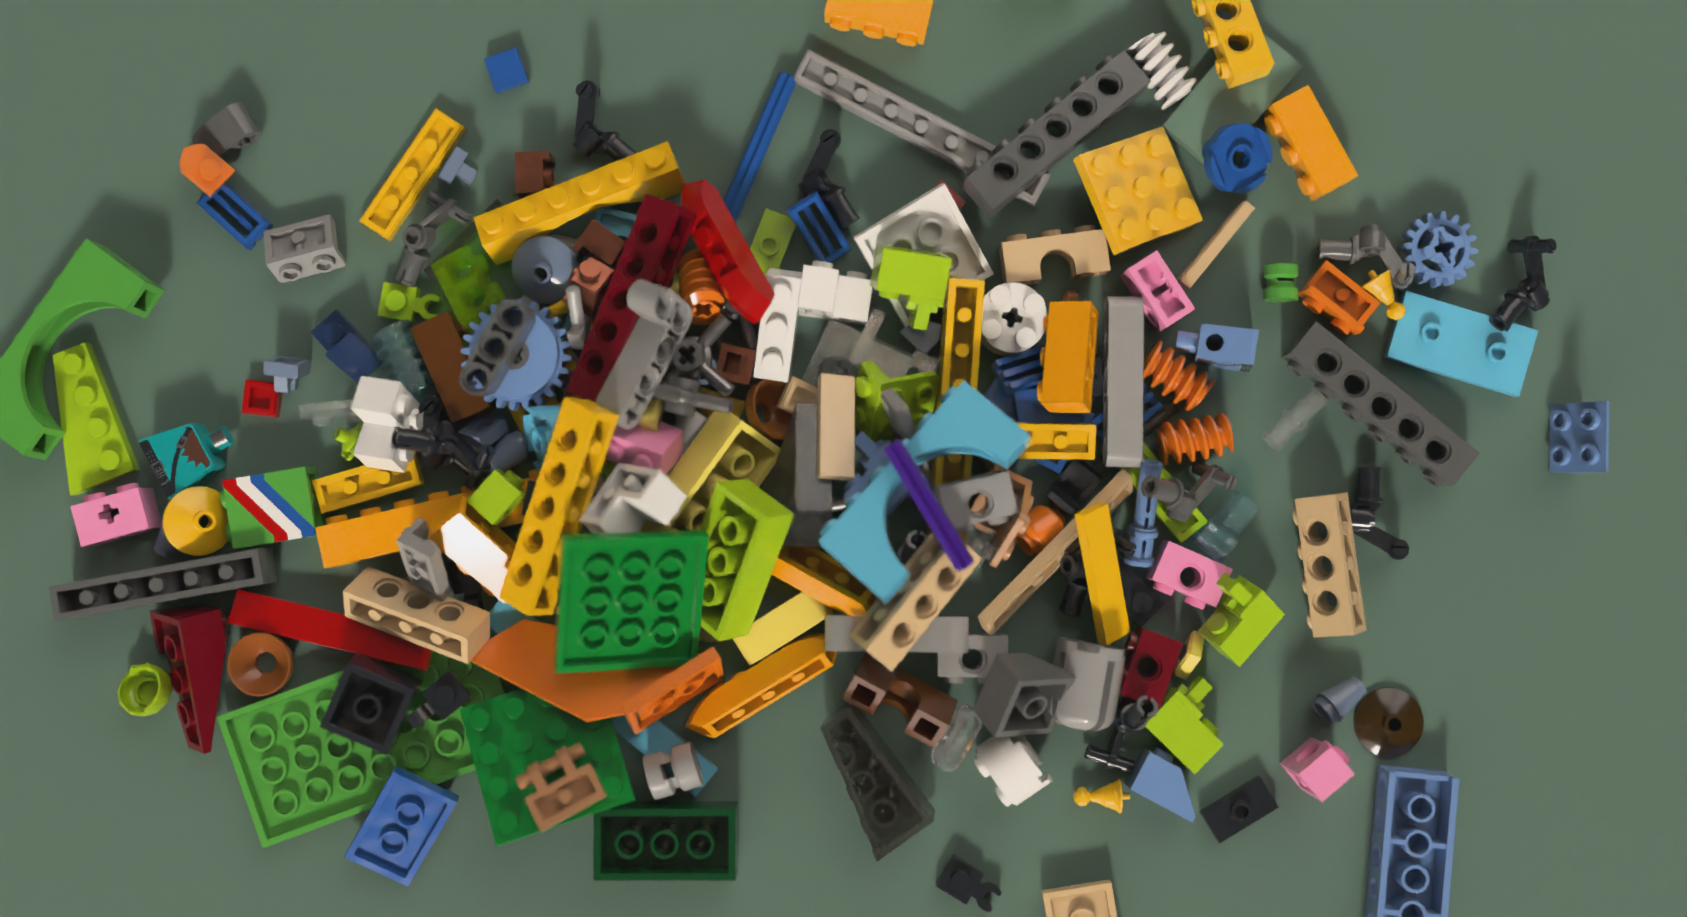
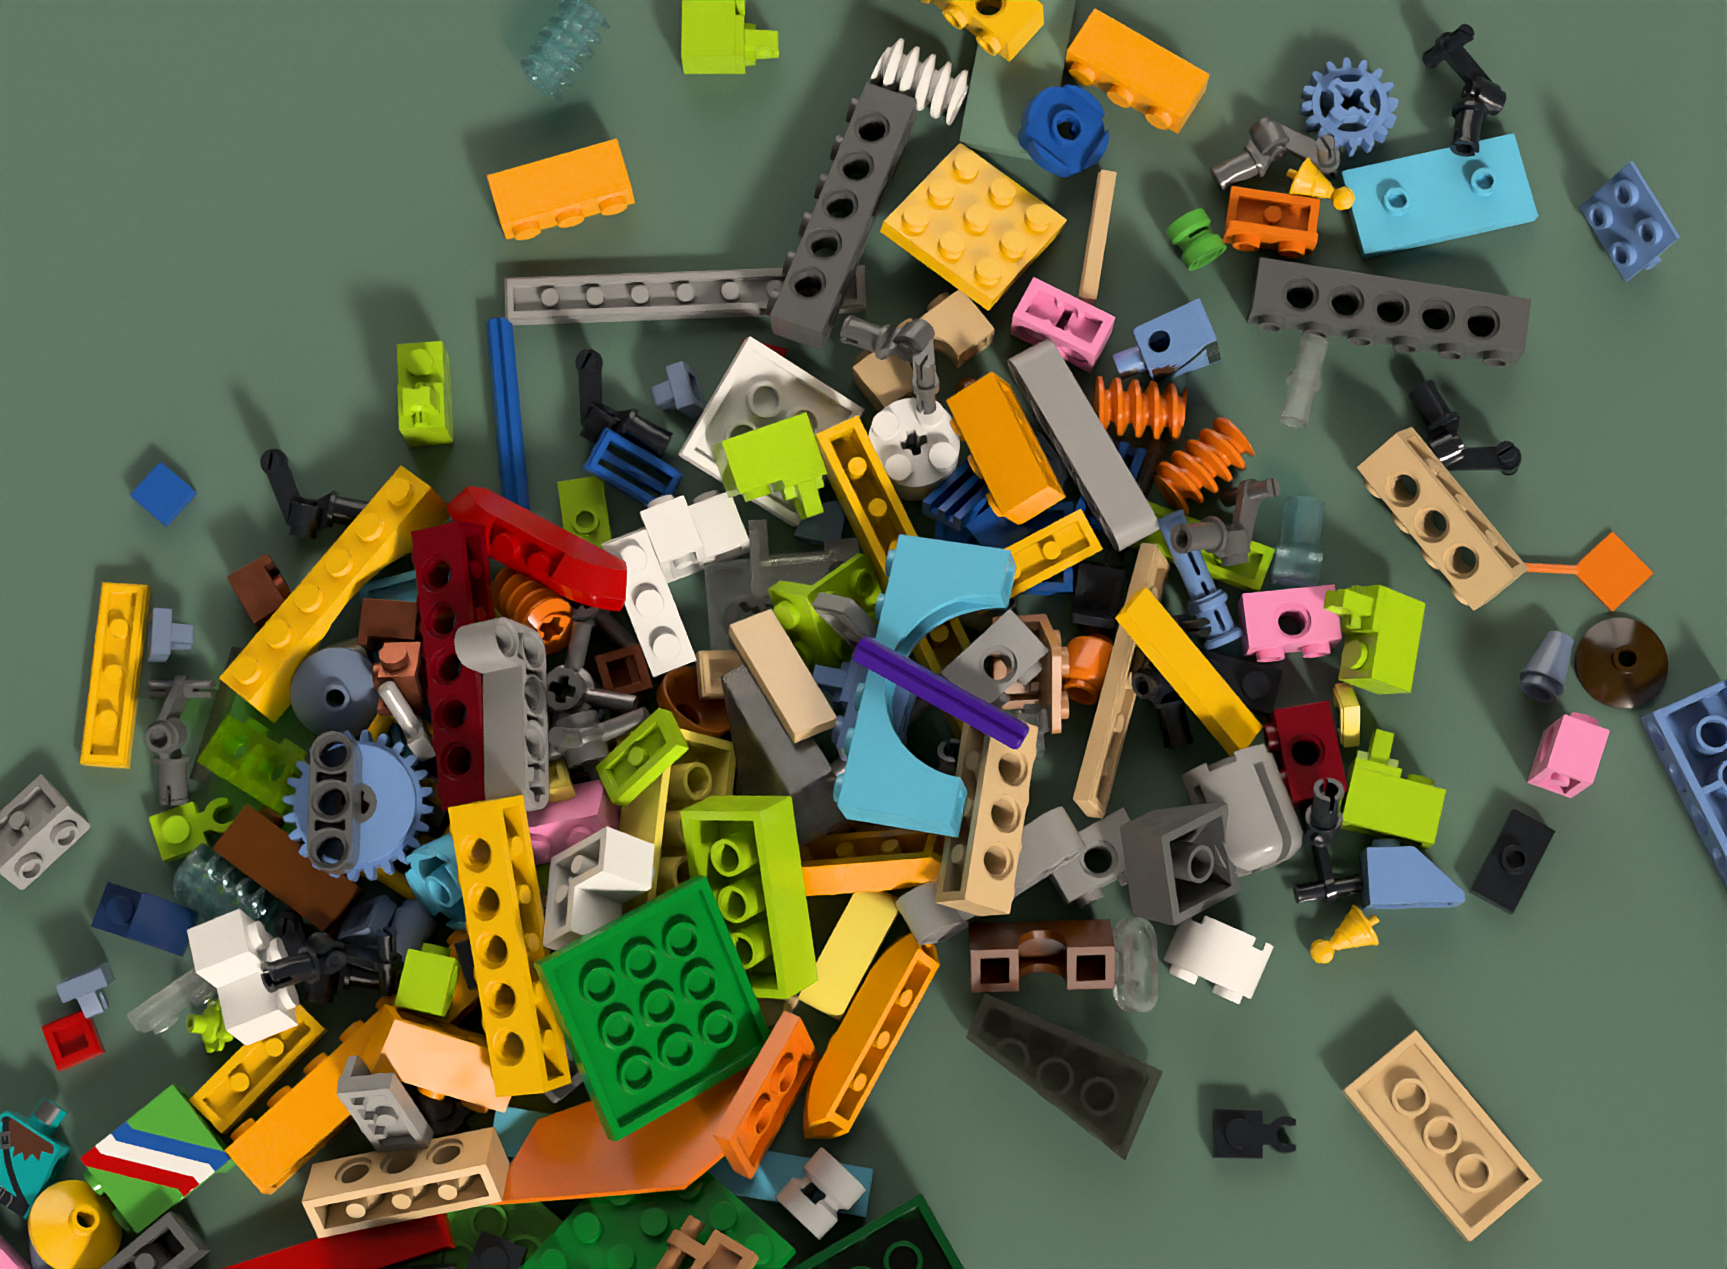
camera: 30 degrees left, 10 degrees down
(711, 99) = (424, 394): none -> lime hinge
(712, 432) = (642, 757): none -> lime plate
(880, 193) = (680, 391): none -> sand blue tile
(1047, 248) = (911, 343): none -> dark grey pin
(1417, 658) = (1607, 571): none -> orange piece

